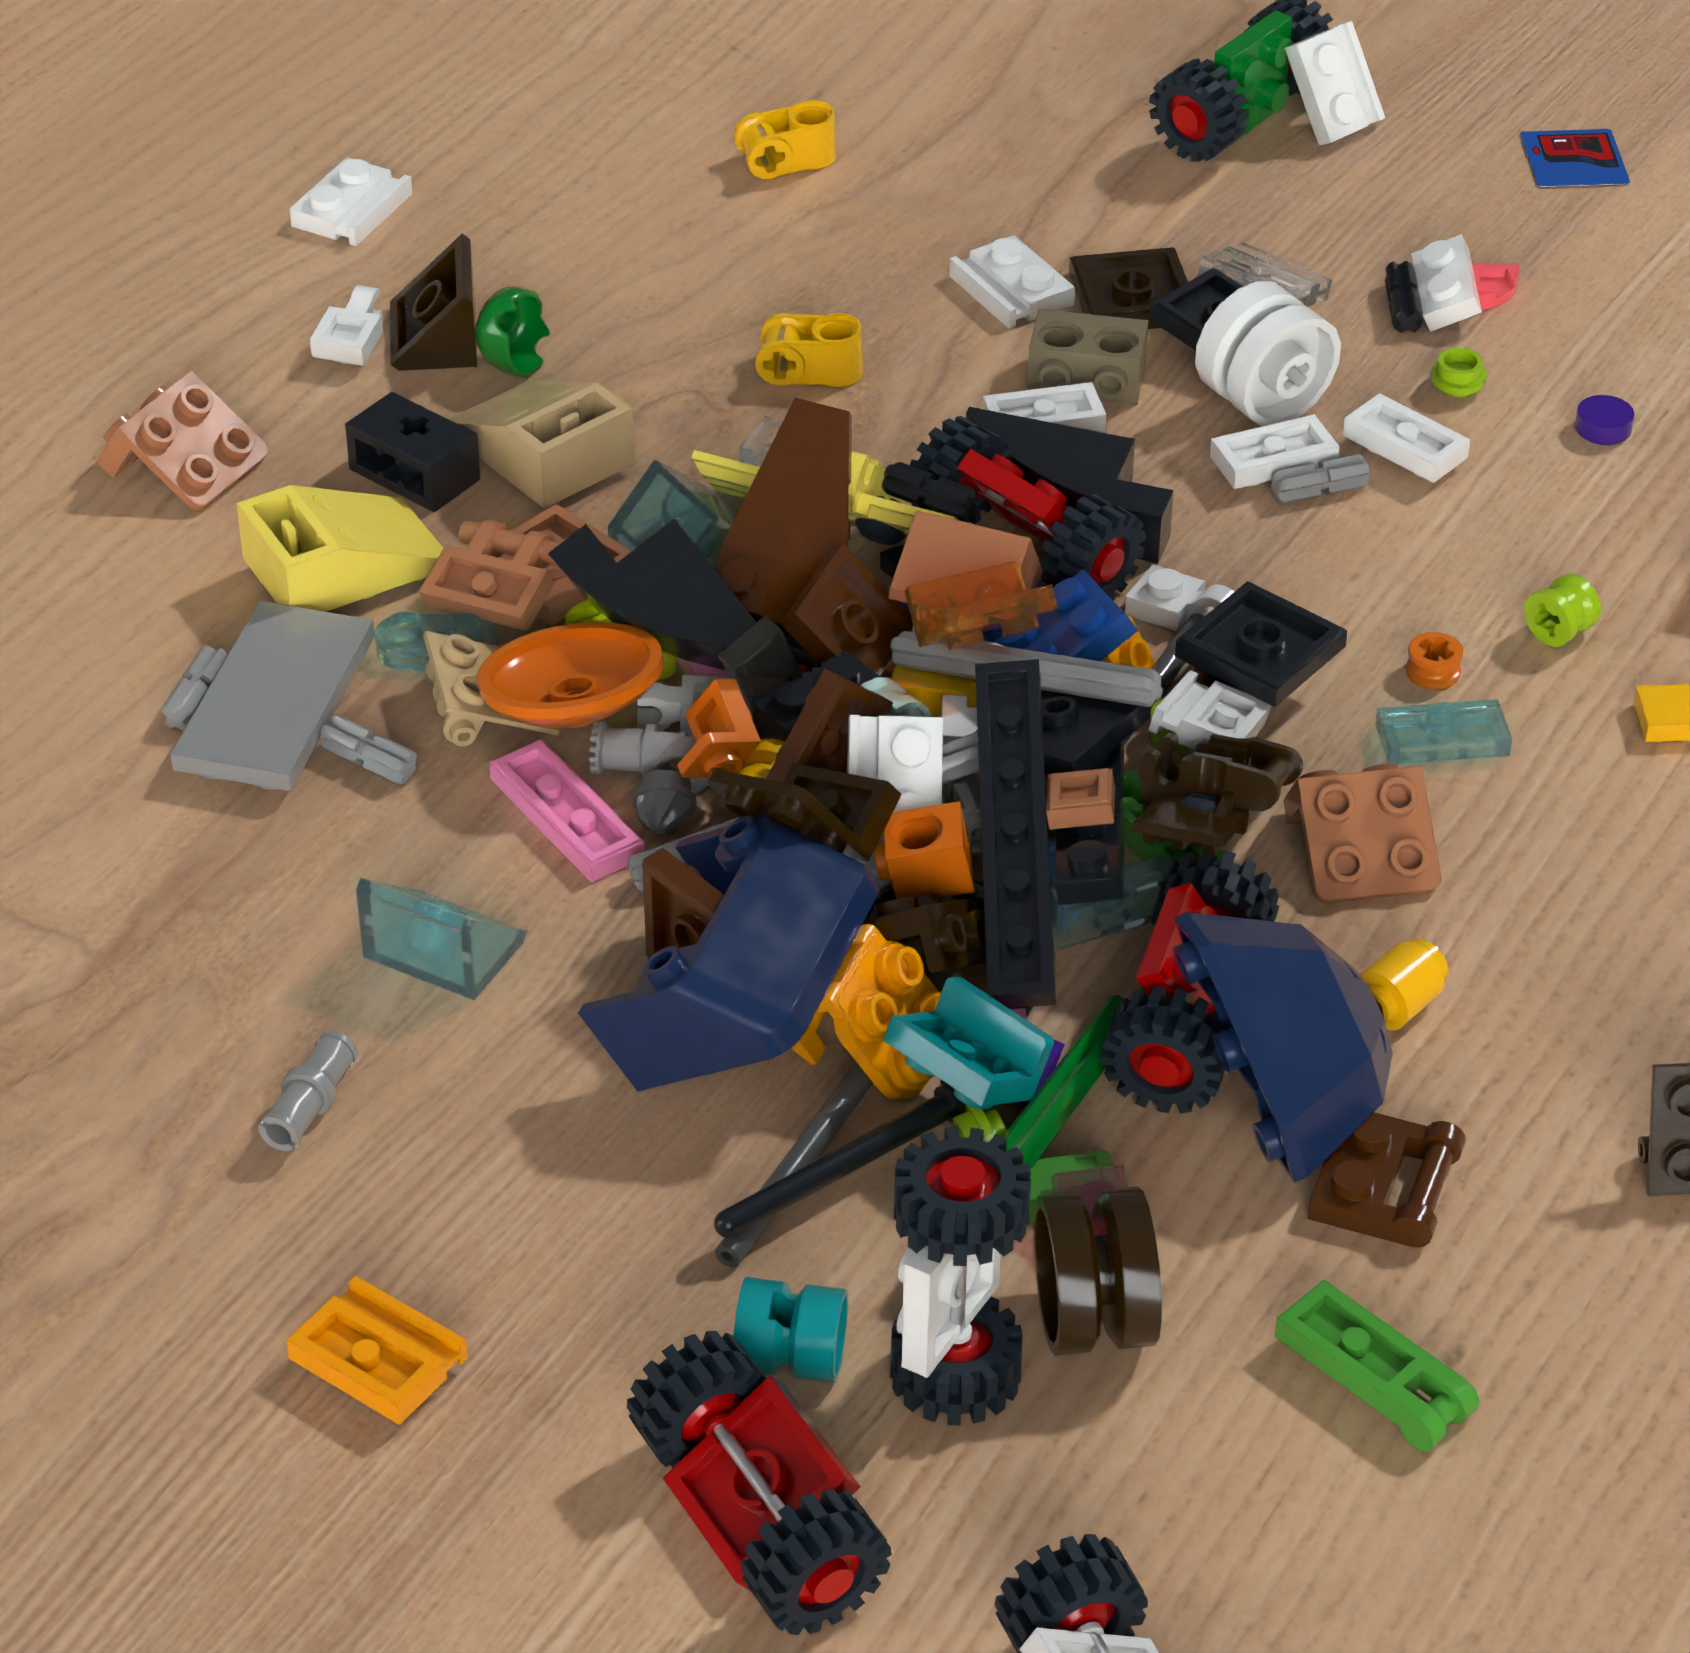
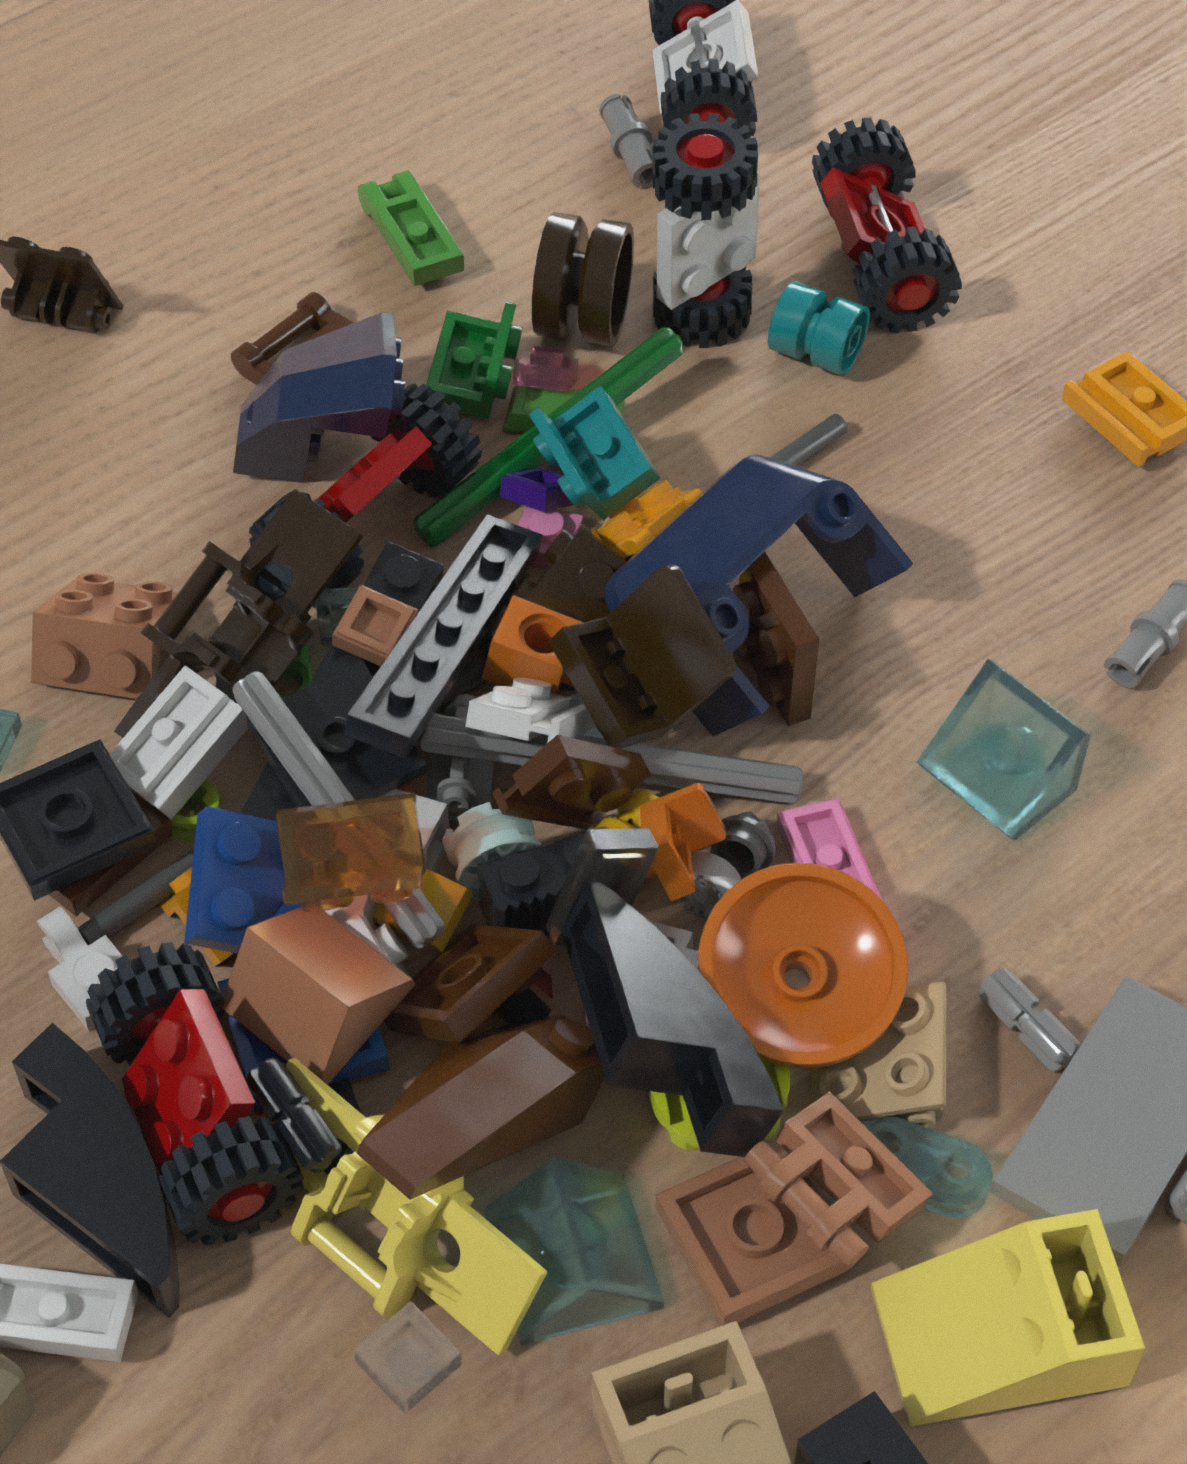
camera: 160 degrees left, 10 degrees up
(840, 1162) = (749, 441): black piece -> none
(1171, 1583) = (629, 139): none -> light grey pin
(1185, 1190) = (471, 360): none -> green bracket
(1406, 980) = (188, 477): yellow brick -> none

